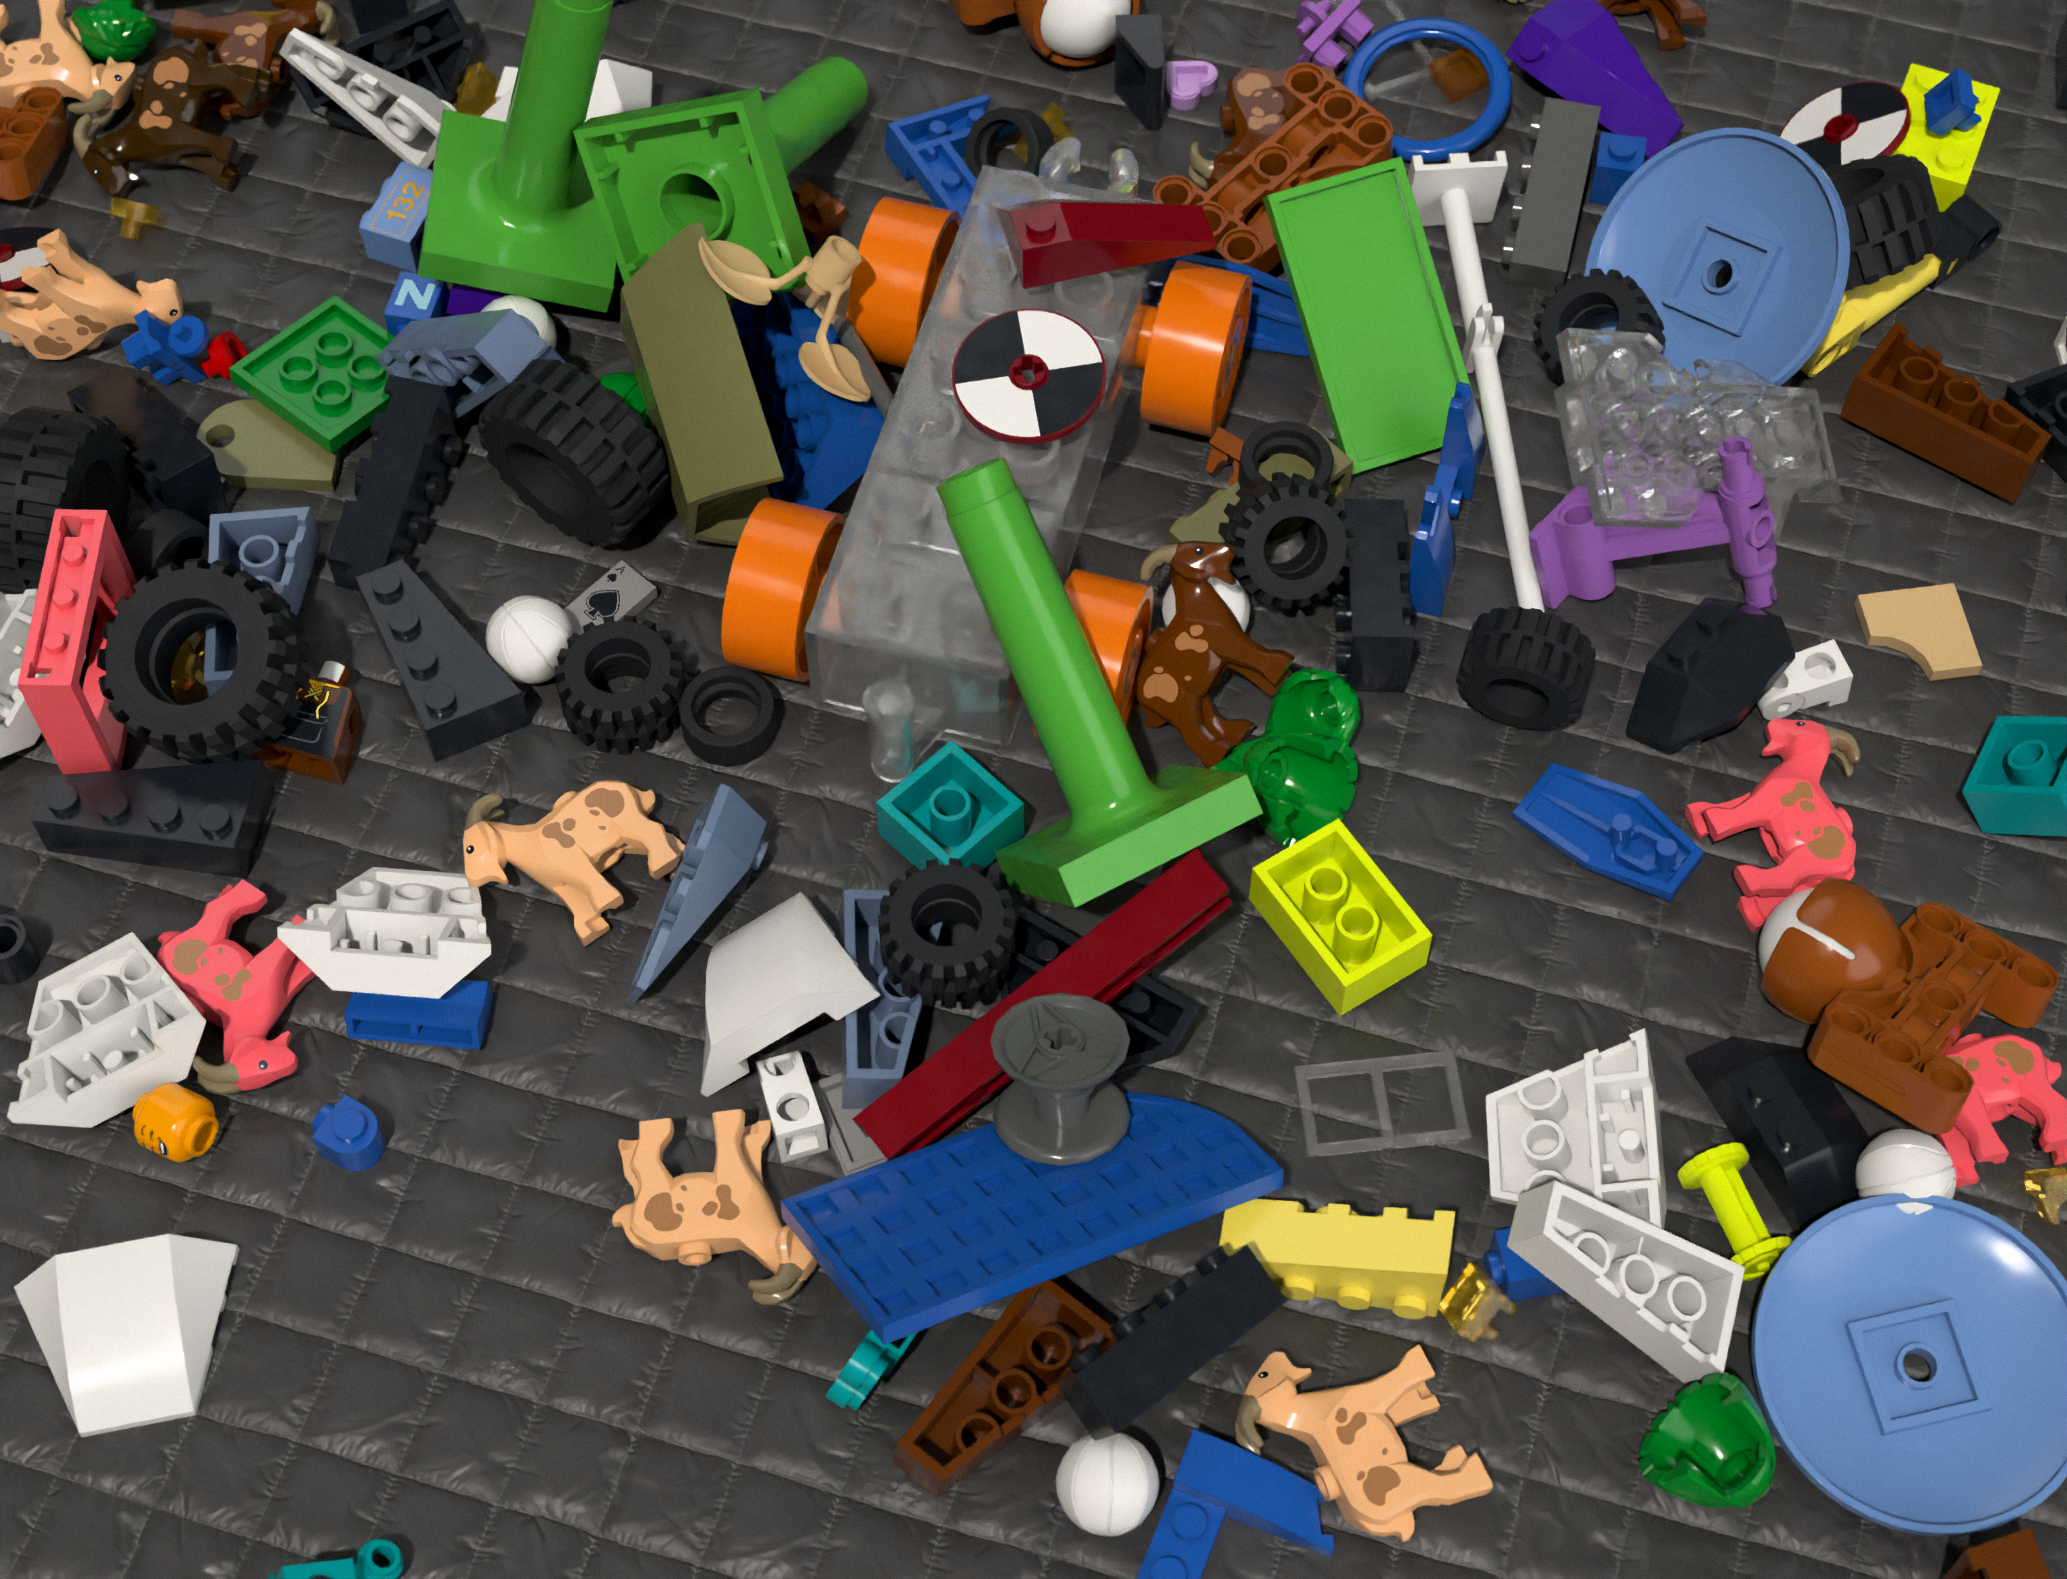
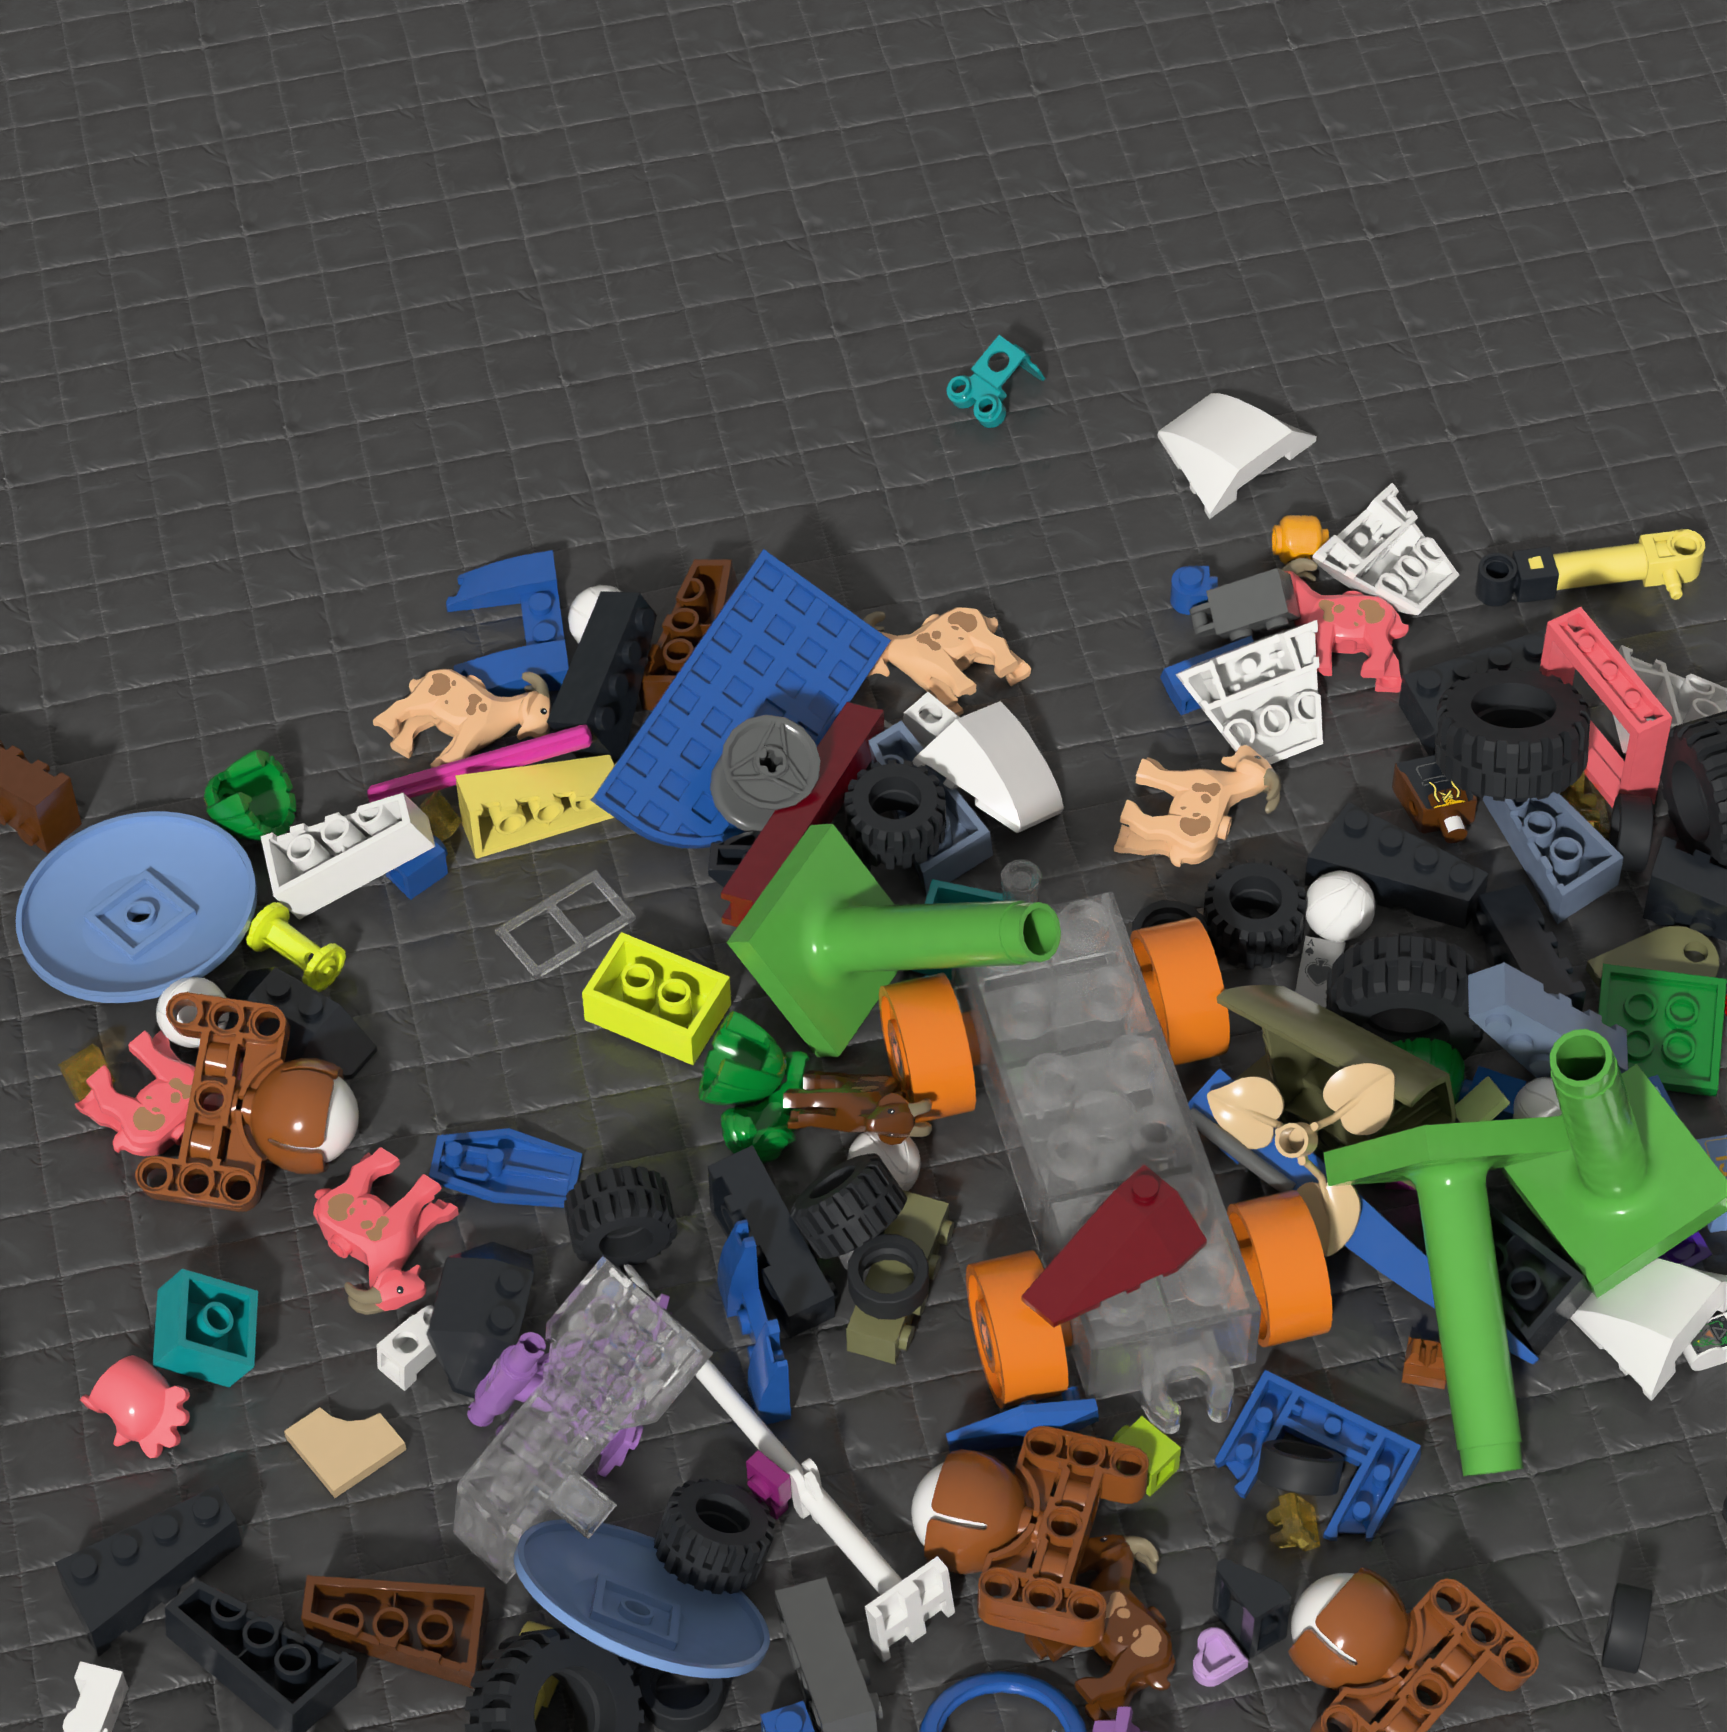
camera: 150 degrees right, 5 degrees down
(321, 1045) = (1248, 607): none -> dark grey brick
(589, 326) = (1481, 1103): none -> yellowish green panel
(715, 857) = (1094, 823): sand blue wedge -> none
(992, 384) = (1081, 1140): piece -> none
(1224, 451) = (944, 1316): dark orange tile -> none
(1370, 310) = (899, 1428): bright green tile -> none
(1396, 1313) = (506, 757): none -> dark pink axle
(1519, 361) = (768, 1483): none -> magenta plate
(1584, 1128) = (411, 940): white wedge -> none

